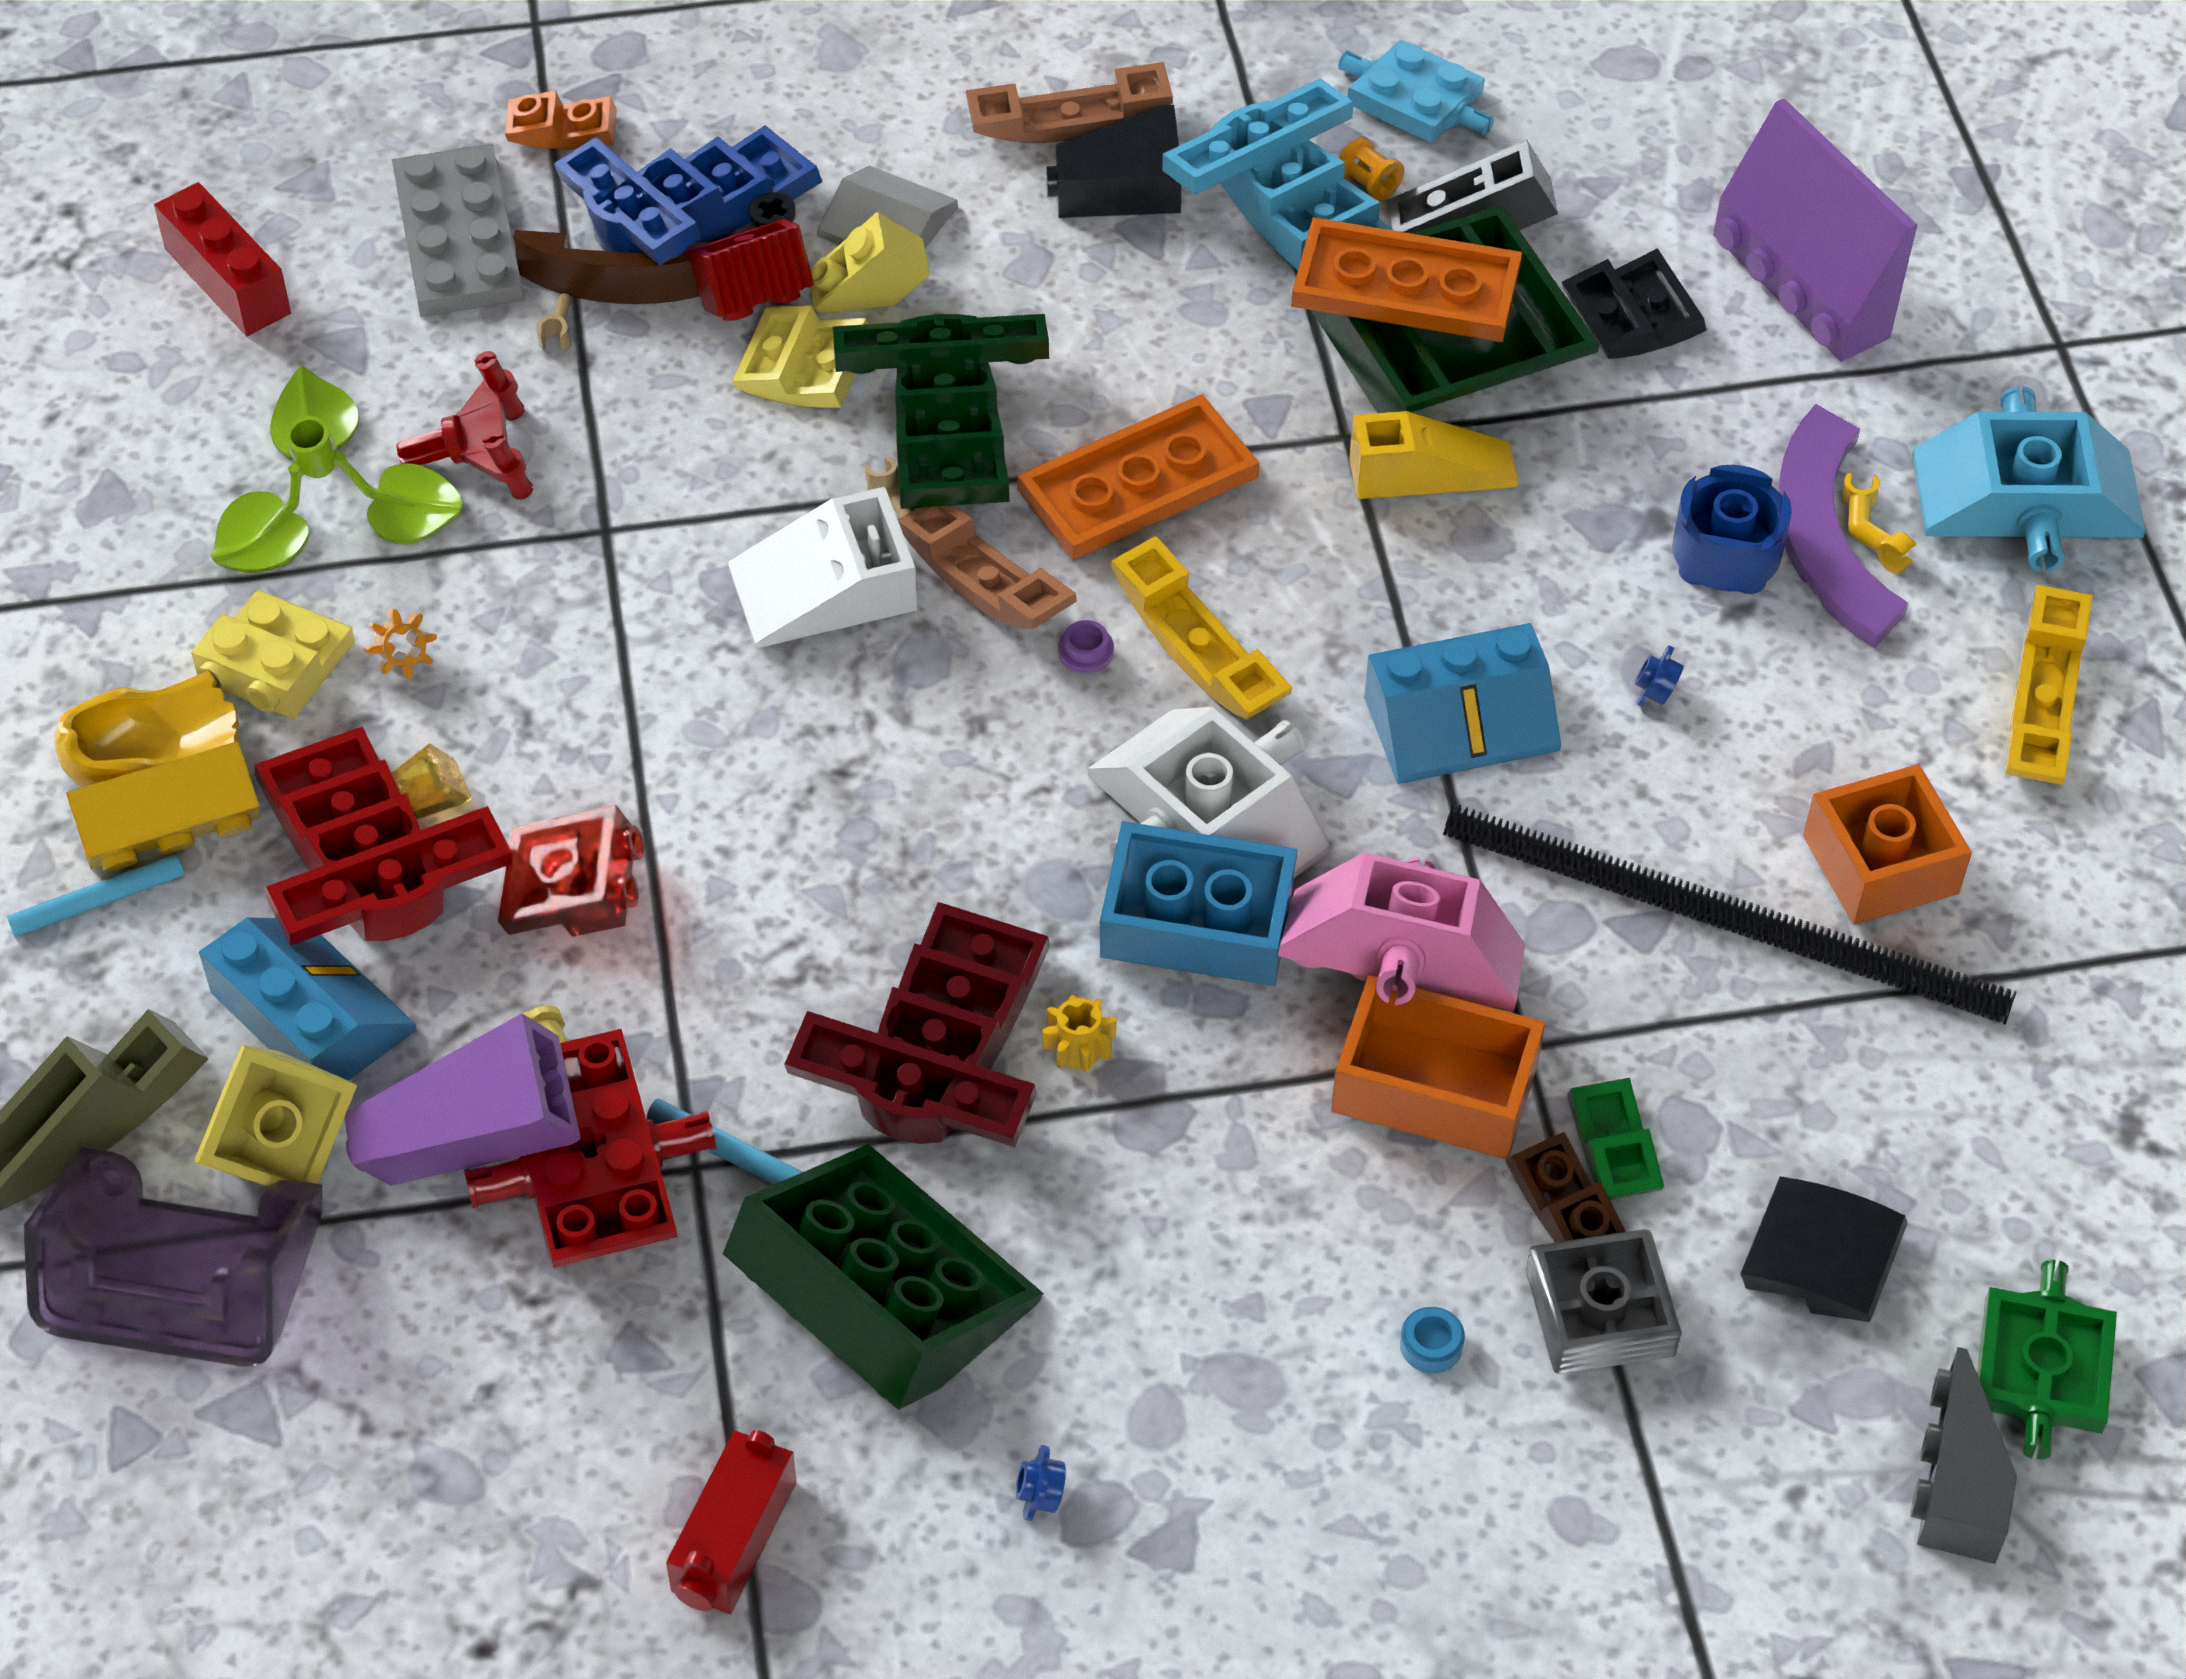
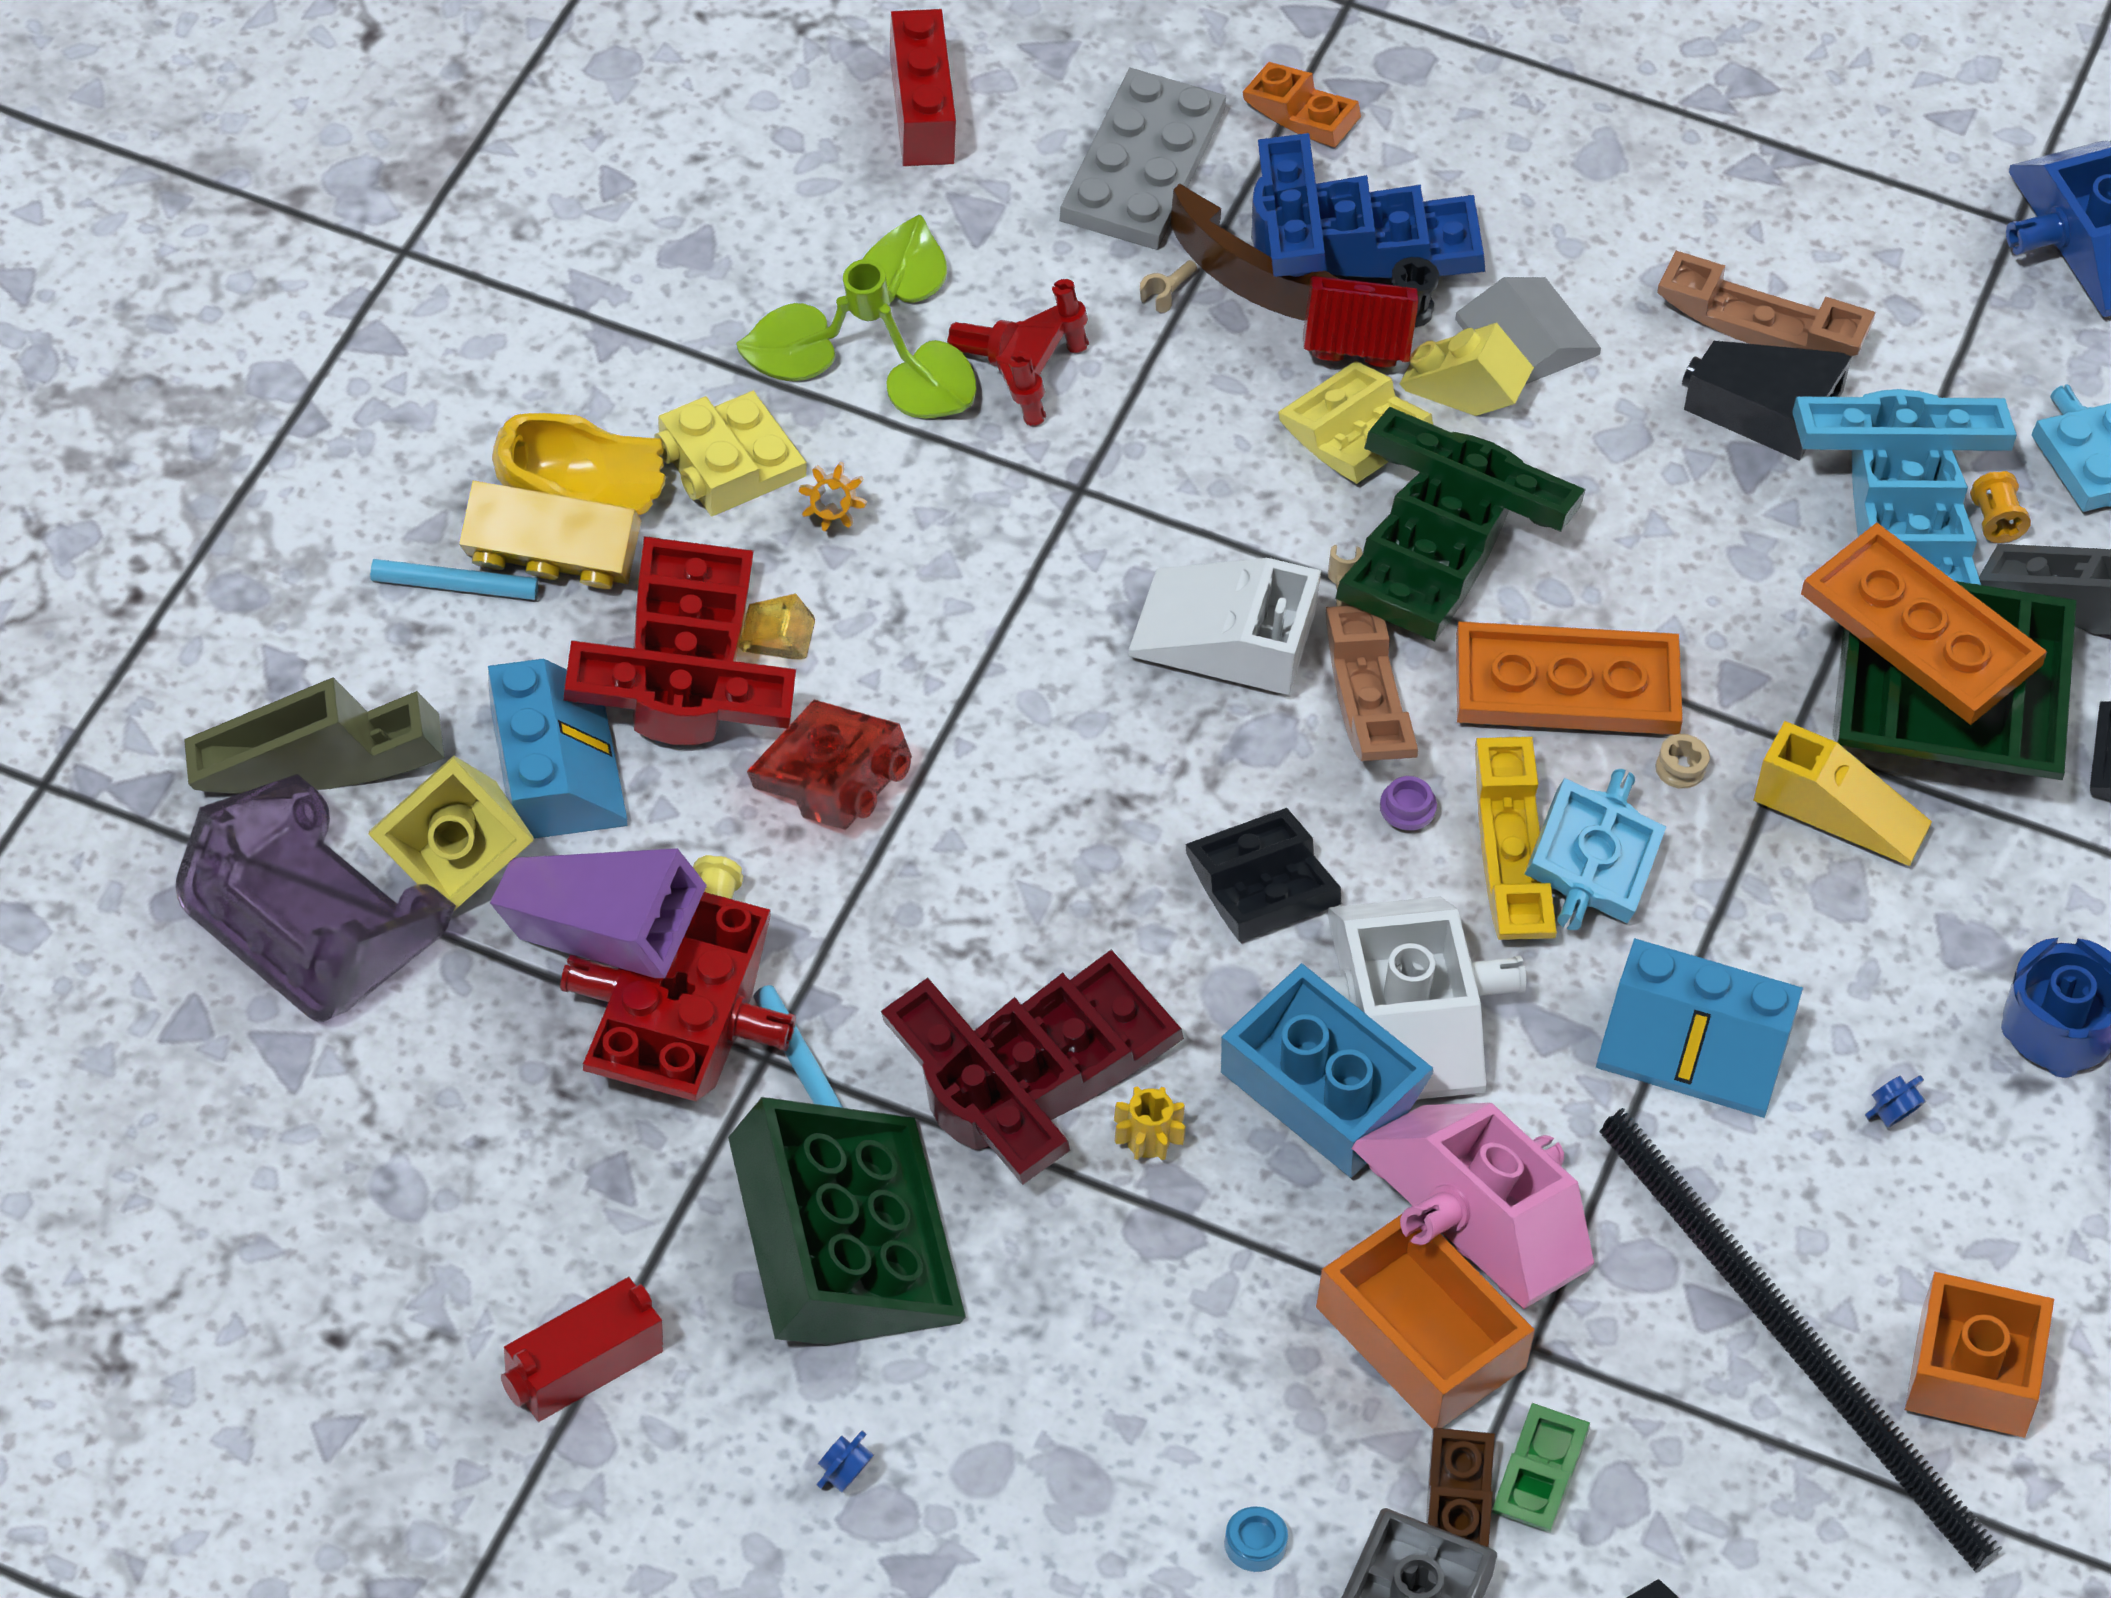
camera: 30 degrees right, 0 degrees up
(1009, 771) = (1263, 874): none -> black slope
(1270, 506) = (1667, 762): none -> tan bush
(1271, 603) = (1596, 850): none -> medium azure plate

